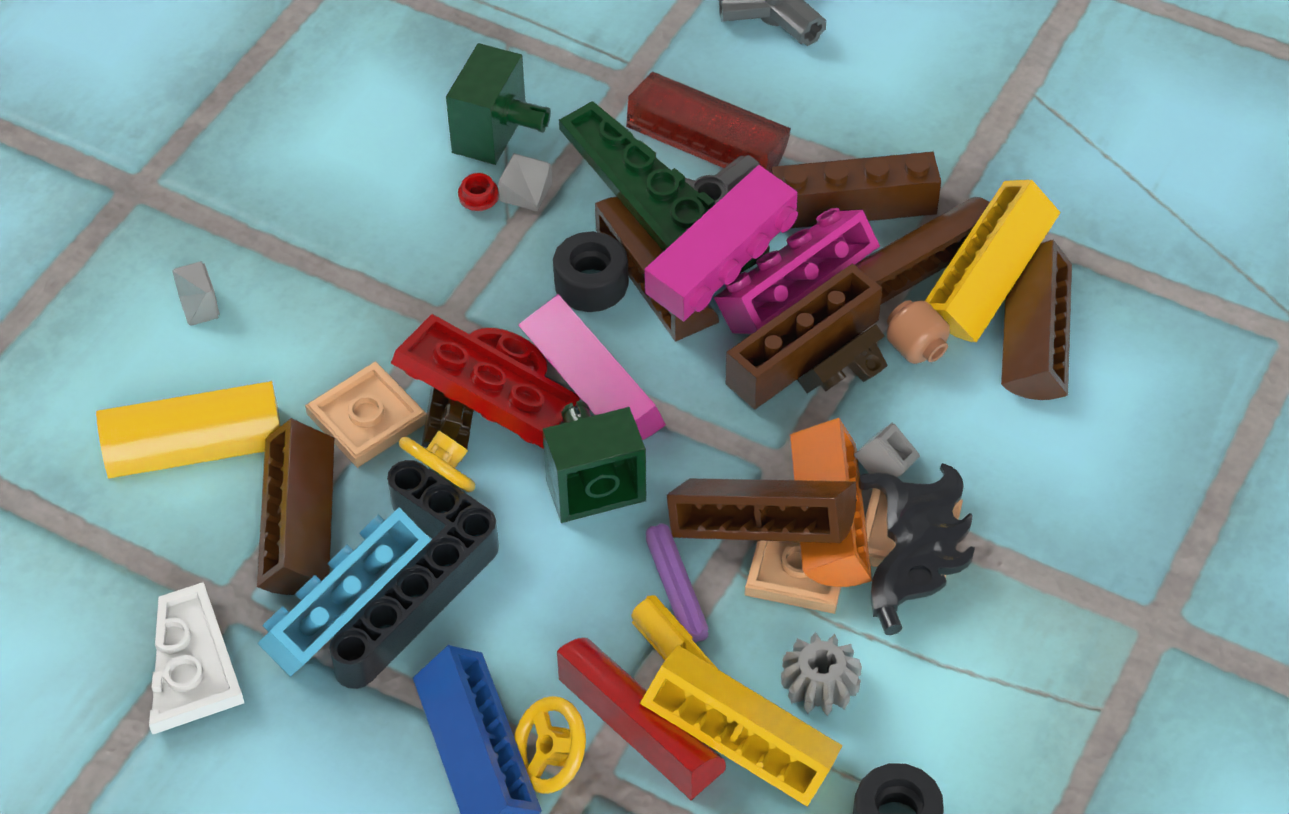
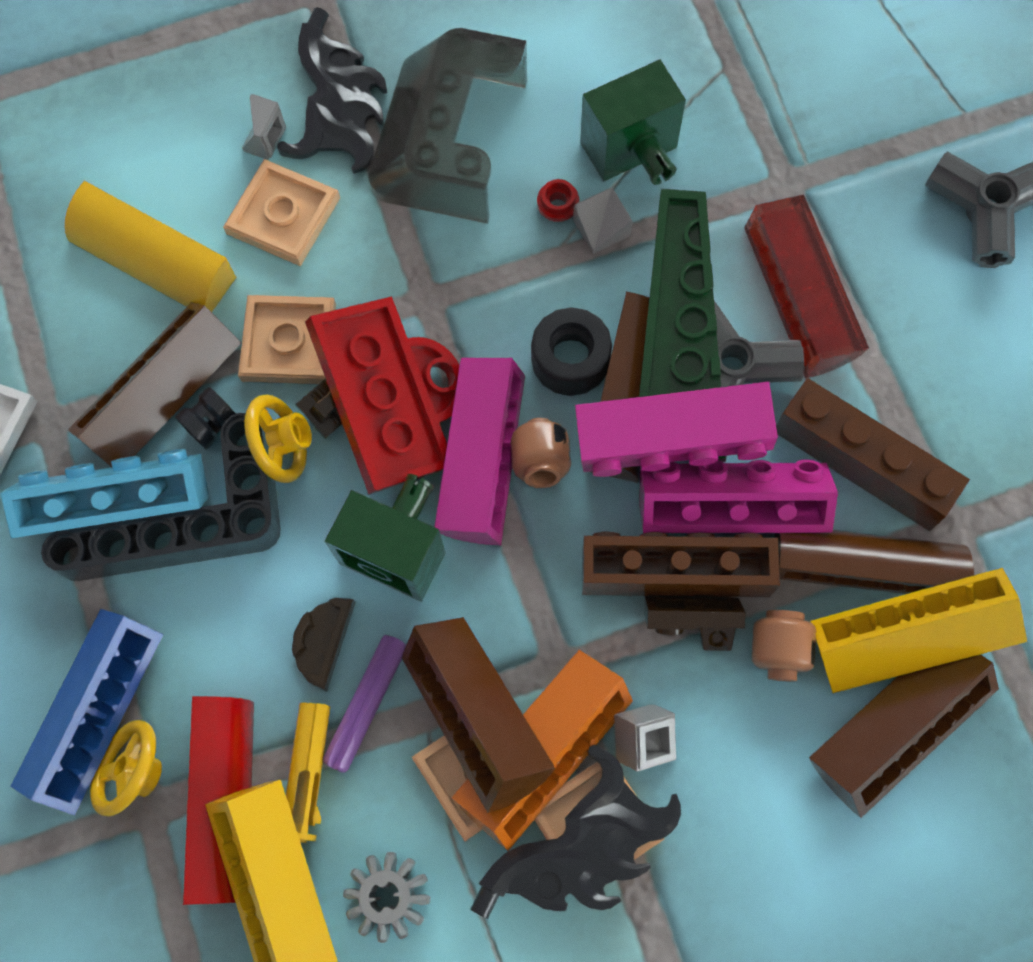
camera: 45 degrees right, 20 degrees up
(238, 240) = (342, 99): none -> black piece
(270, 340) = (282, 212): none -> light nougat tile
(334, 206) = (417, 149): none -> clear smoke windscreen
(364, 496) = (213, 409): none -> black wheel
(601, 574) = (320, 639): none -> dark brown tile
(637, 343) = (540, 452): none -> nougat head

